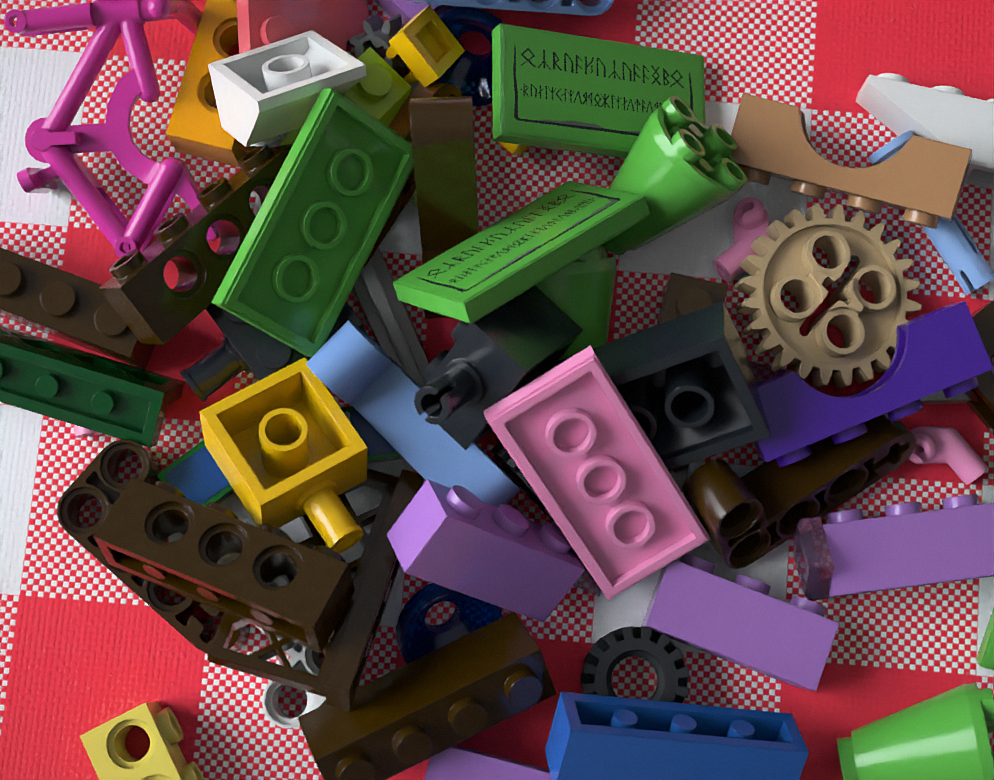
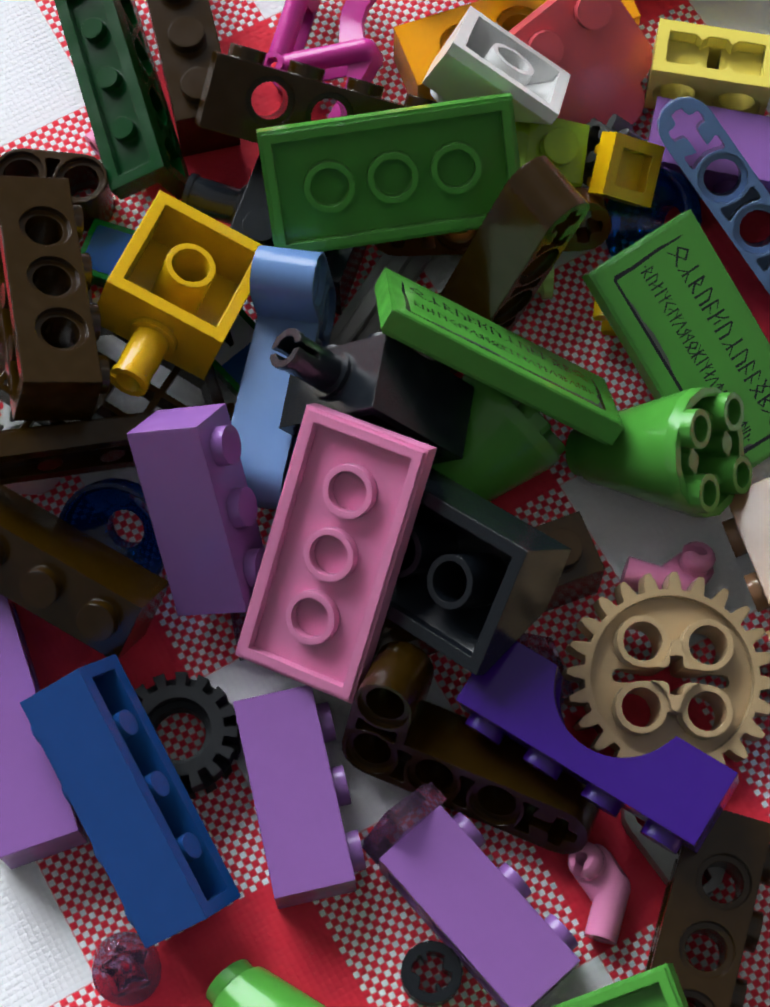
camera: 55 degrees right, 10 degrees down
(927, 593) = (451, 967): none -> black bush

